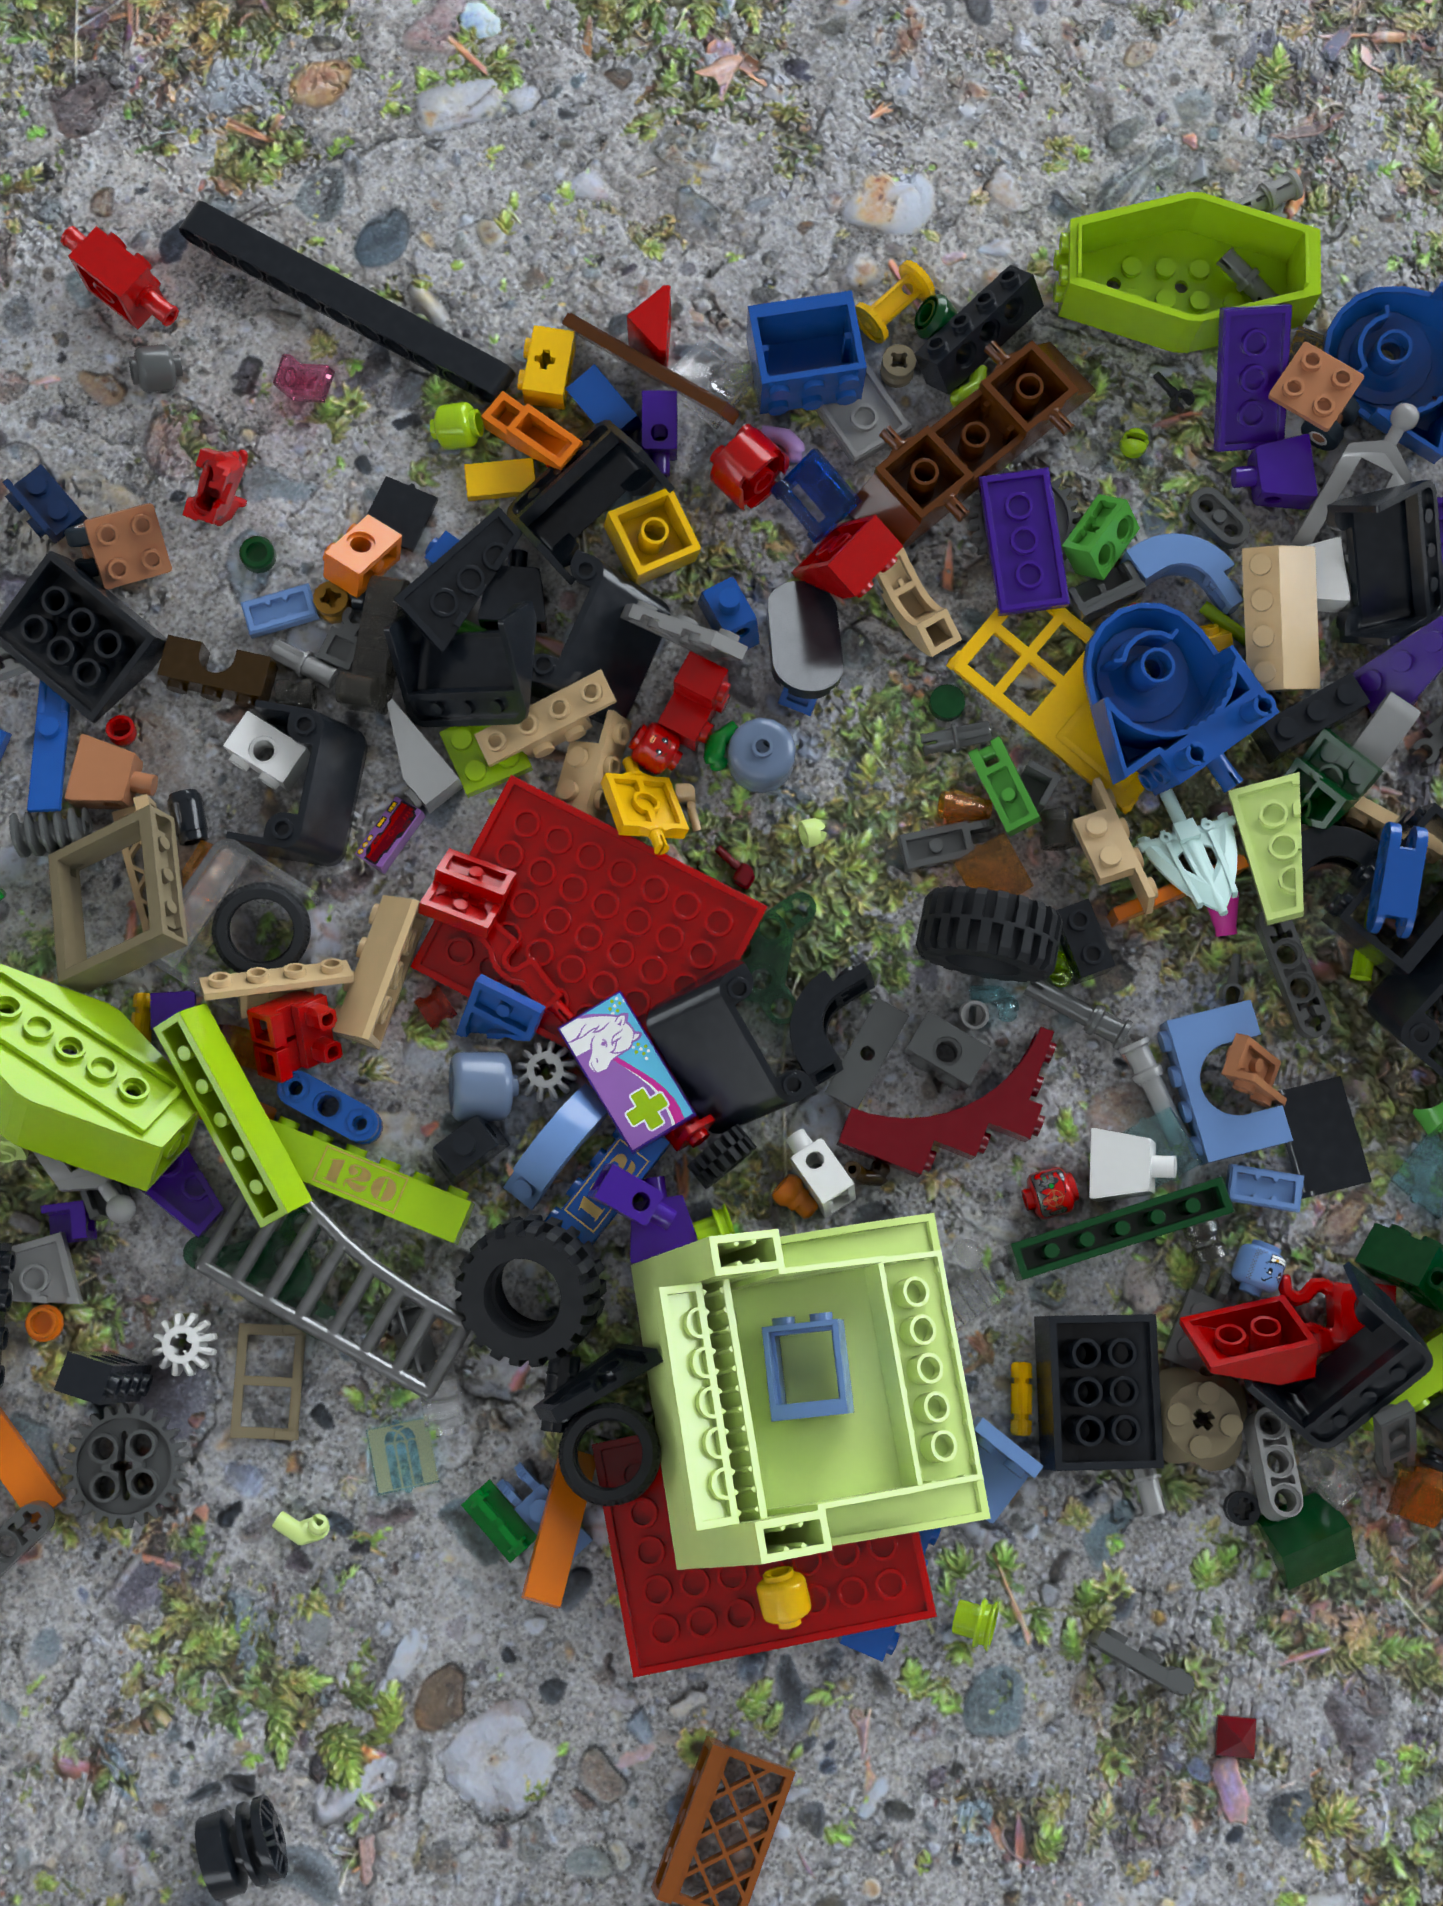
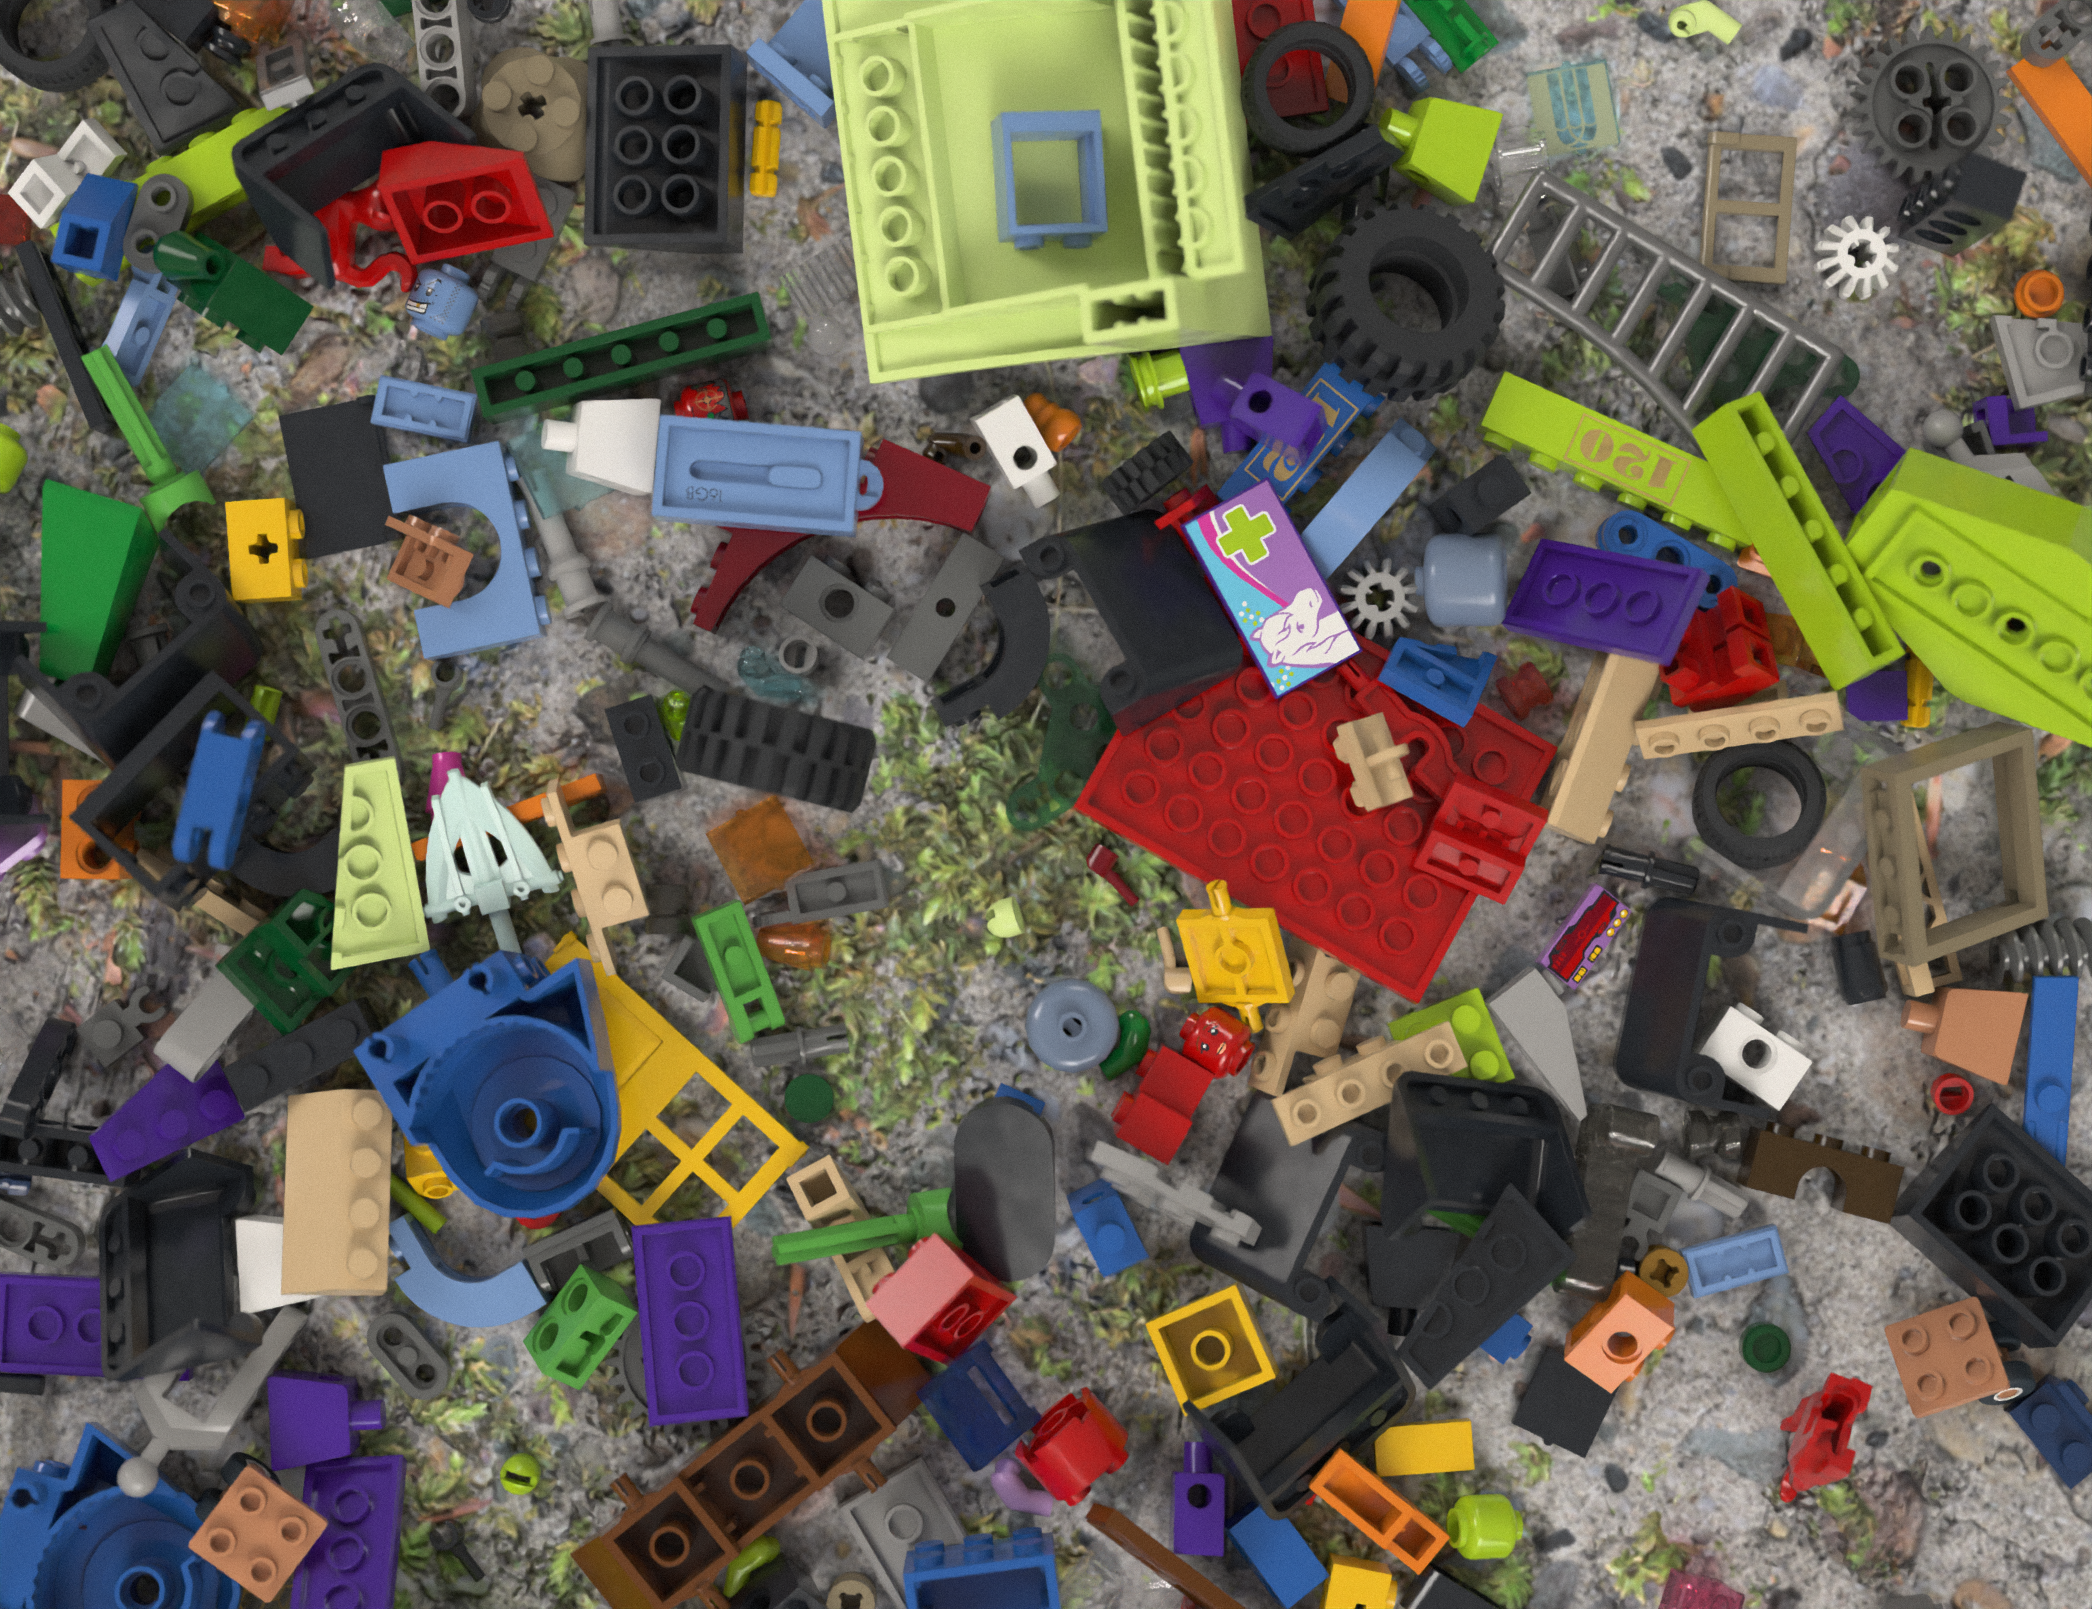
camera: 170 degrees left, 10 degrees up
(342, 882) = (1648, 870): none -> black axle
(376, 1067) = (1606, 601): none -> dark purple tile
(503, 1417) = (1444, 146): none -> lime torso
(547, 944) = (1374, 762): none -> tan hips
(862, 614) = (924, 1217): none -> bright green piece
(1012, 1136) = (761, 476): none -> medium blue piece
(1378, 1059) = (250, 529): none -> yellow brick

